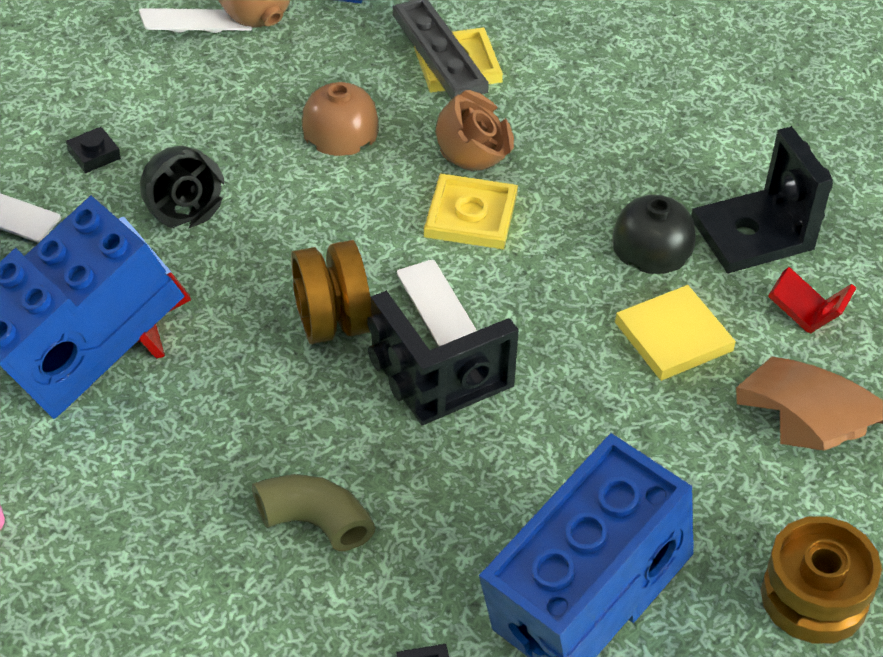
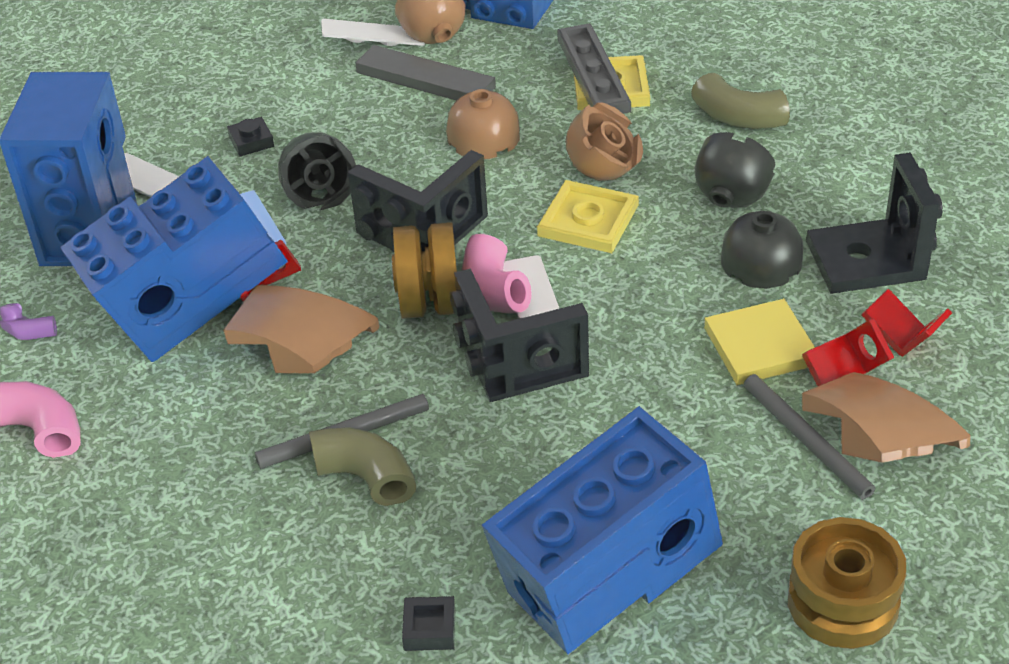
camera: 15 degrees right, 5 degrees down
(208, 363) = (298, 326): none -> medium nougat slope
(261, 64) = (421, 73): none -> dark grey tile
(295, 227) = (453, 197): none -> black bracket
(297, 465) = (366, 422): none -> dark grey piece
(384, 273) = (501, 289): none -> bright pink cylinder
(593, 78) = (738, 106): none -> olive cylinder
(609, 151) = (733, 171): none -> pearl dark grey cylinder
(744, 428) = (809, 437): none -> dark grey piece
(763, 340) = (847, 354): none -> red bracket

